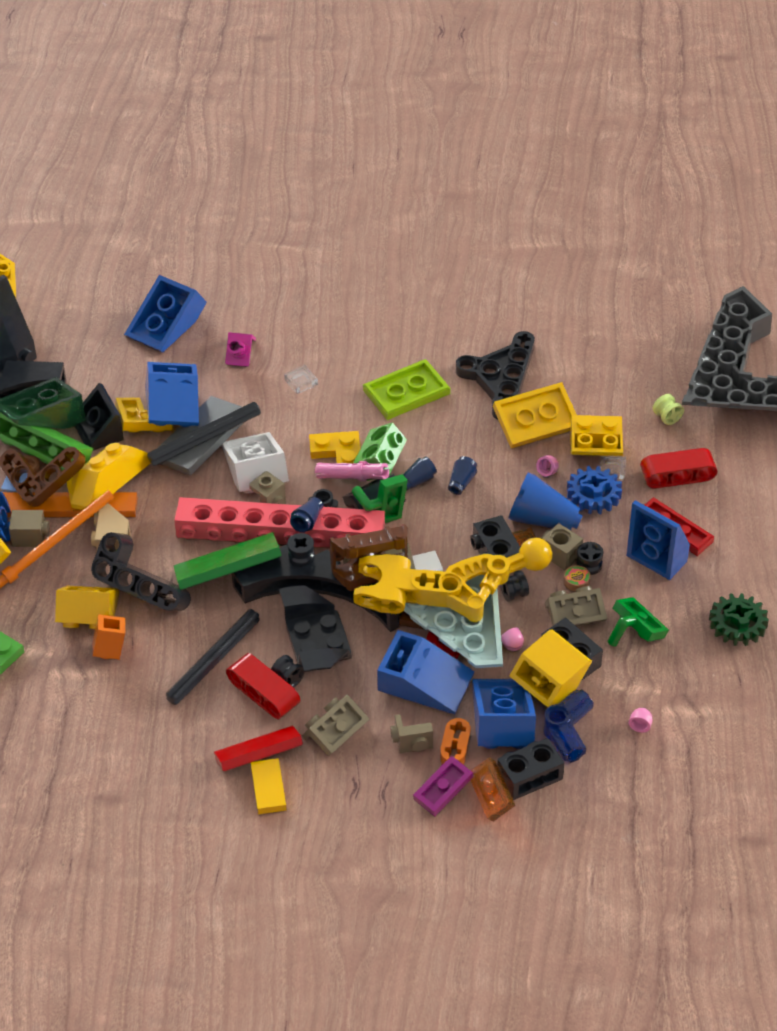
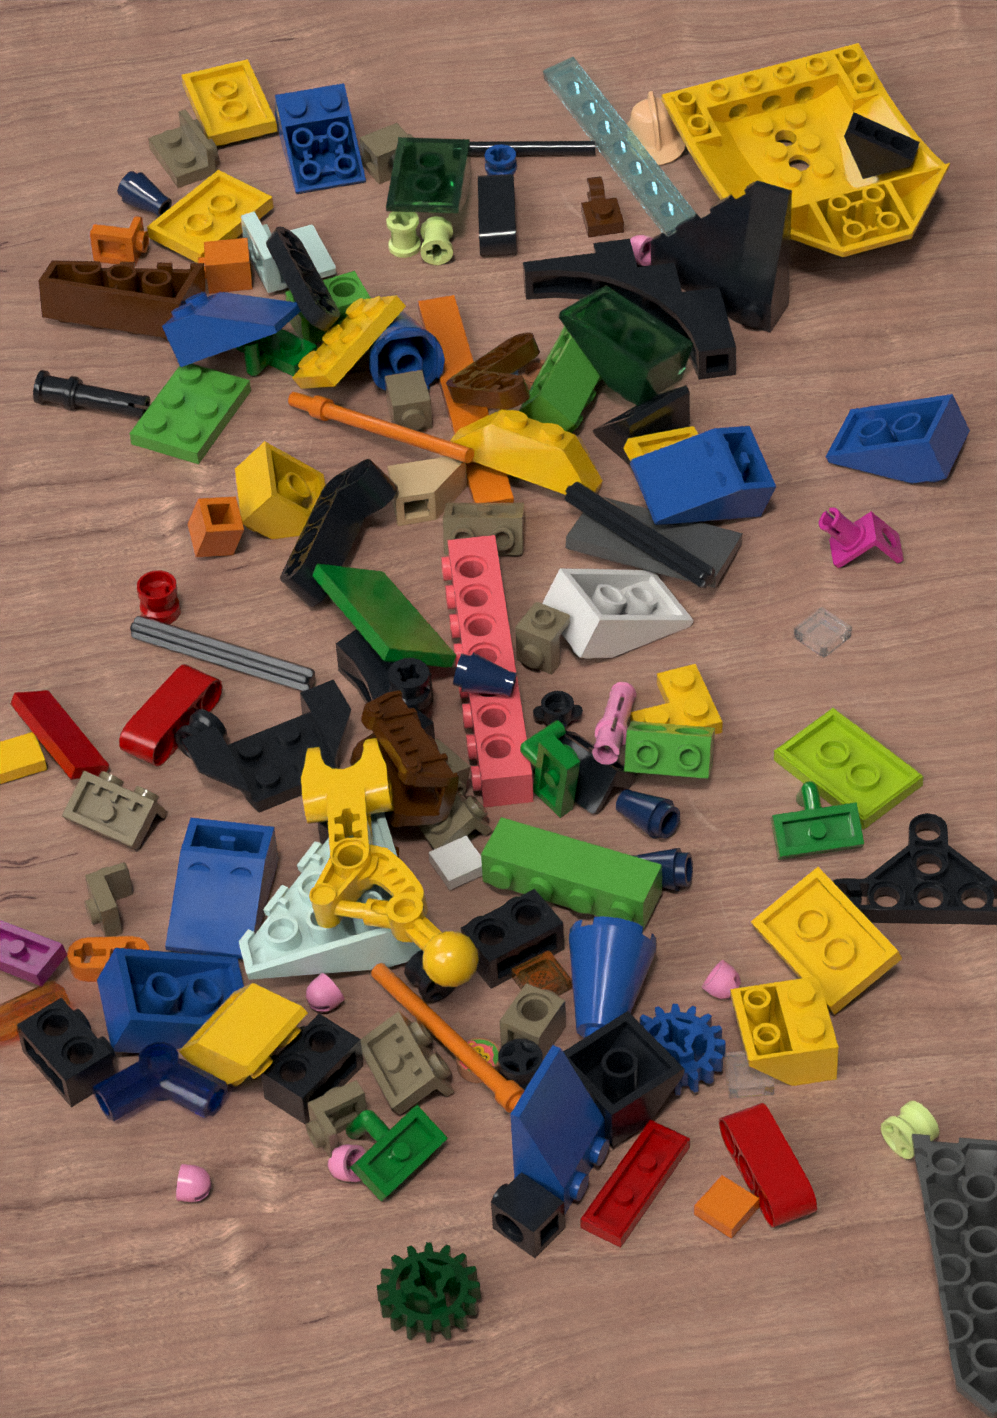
camera: 80 degrees right, 0 degrees up
(155, 509) = (486, 519): none -> dark tan bracket
(155, 679) = (158, 596): none -> red wheel
(453, 403) = (816, 827): none -> green plate
(459, 510) = (571, 872): none -> bright green brick
(610, 510) = (625, 1074): none -> black slope
(612, 650) = (333, 1113): none -> dark tan bracket
(614, 561) = (506, 1091): none -> orange bar
(640, 644) = (344, 1156): none -> bright pink hinge
(694, 569) = (527, 1214): none -> black brick
(698, 492) = (726, 1206): none -> orange tile

